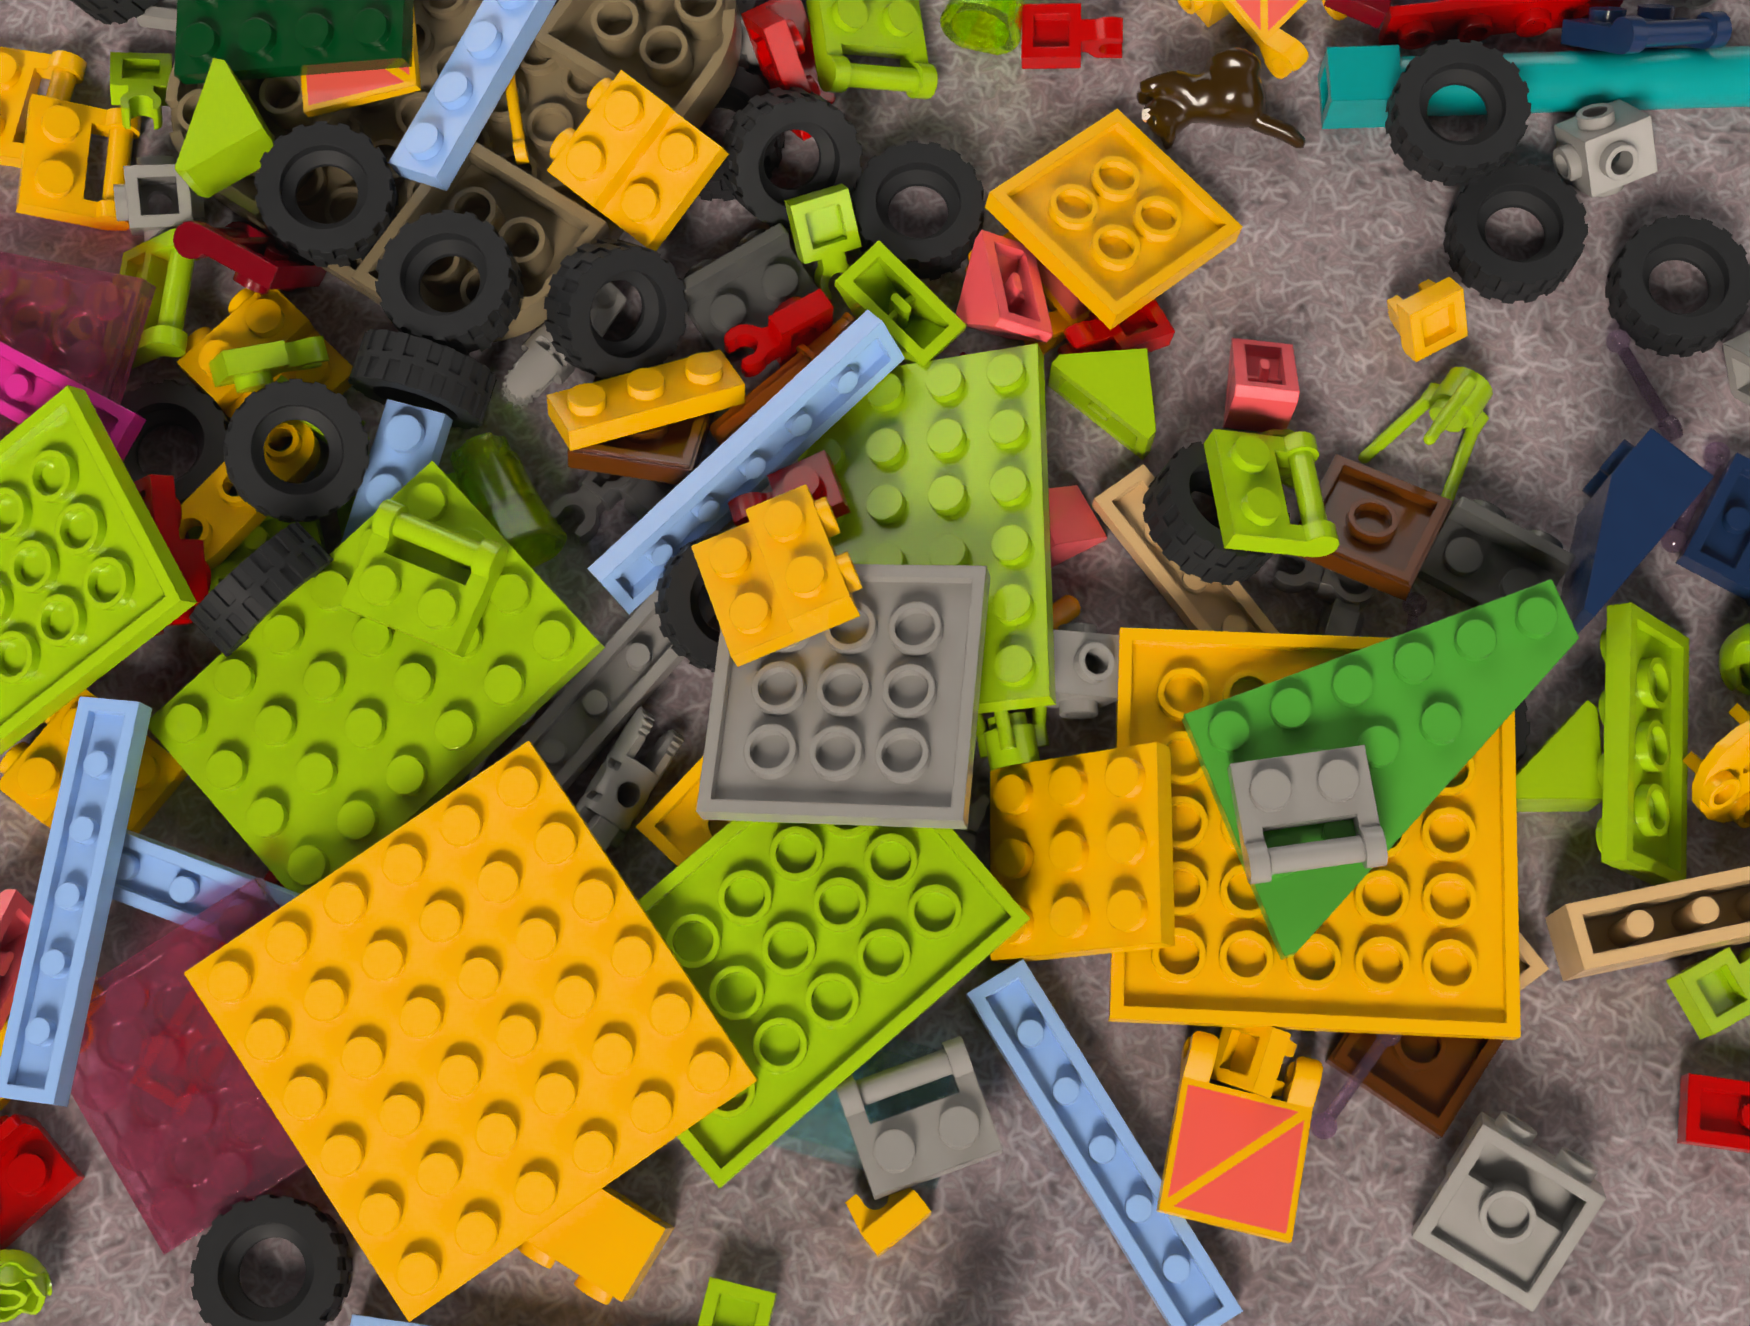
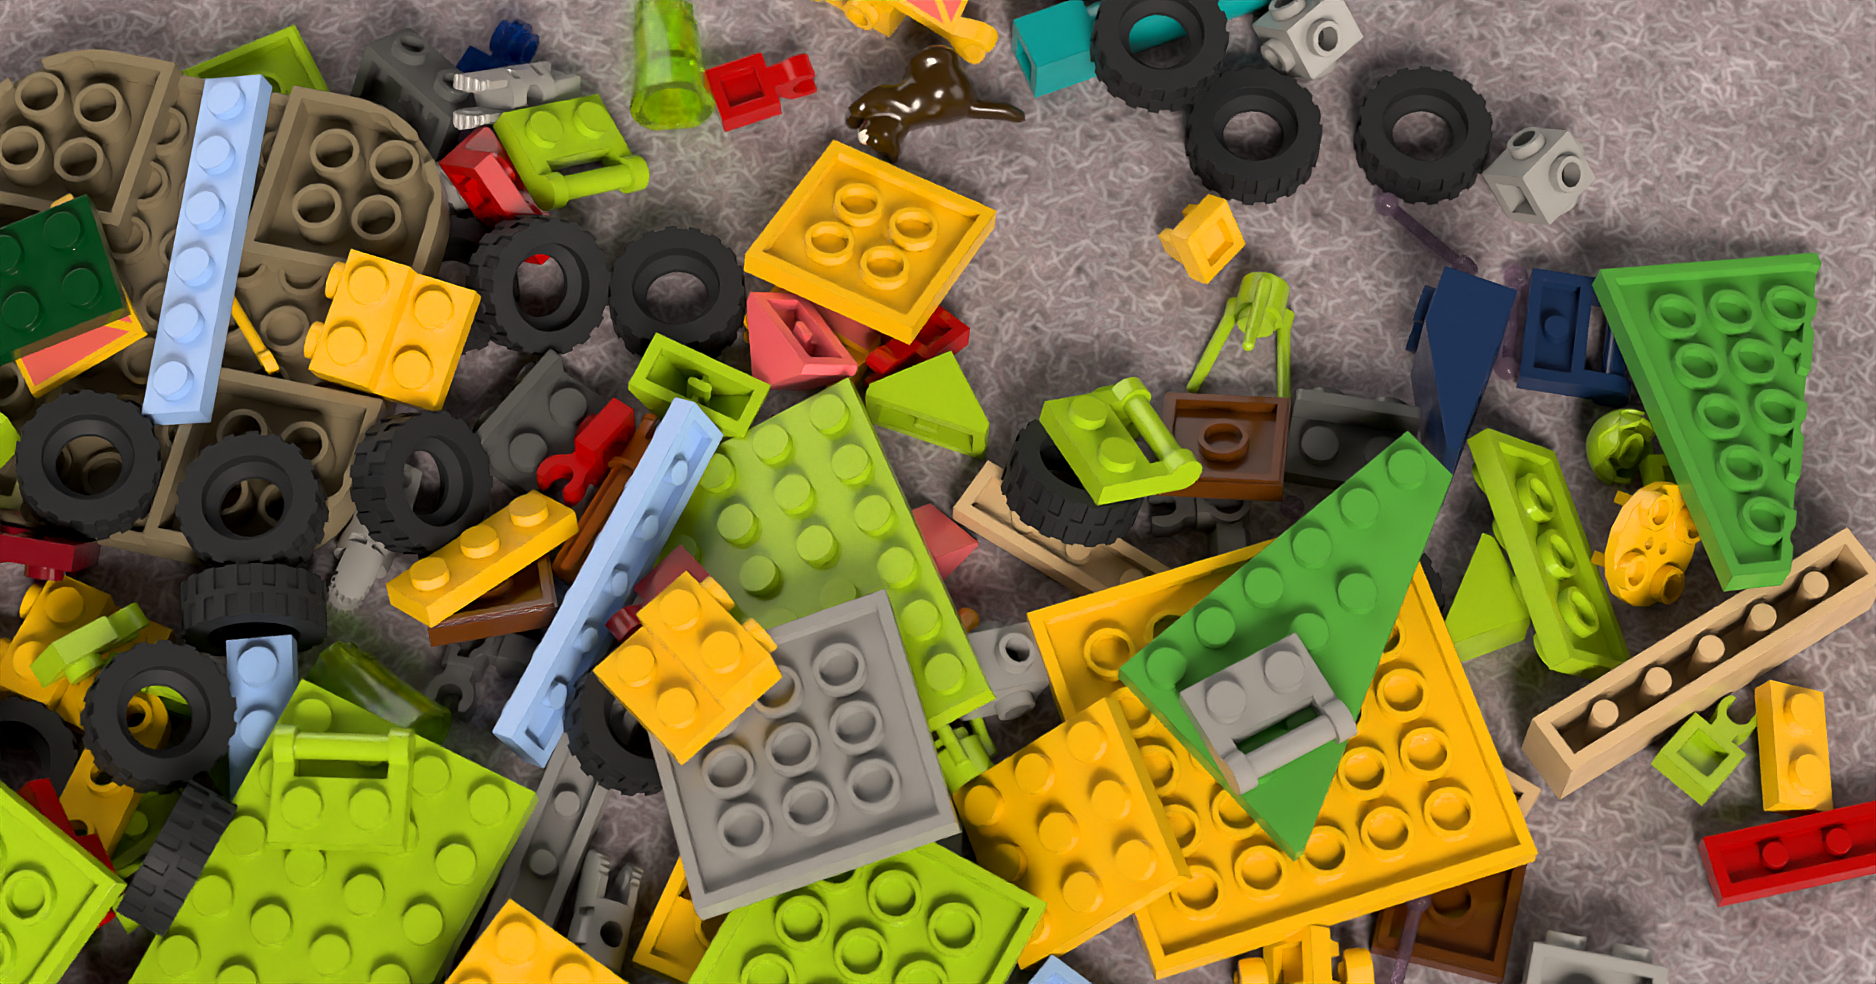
camera: 25 degrees left, 10 degrees down
(823, 231) = (595, 343): lime plate -> none
(1260, 386) = (1070, 352): coral slope -> none

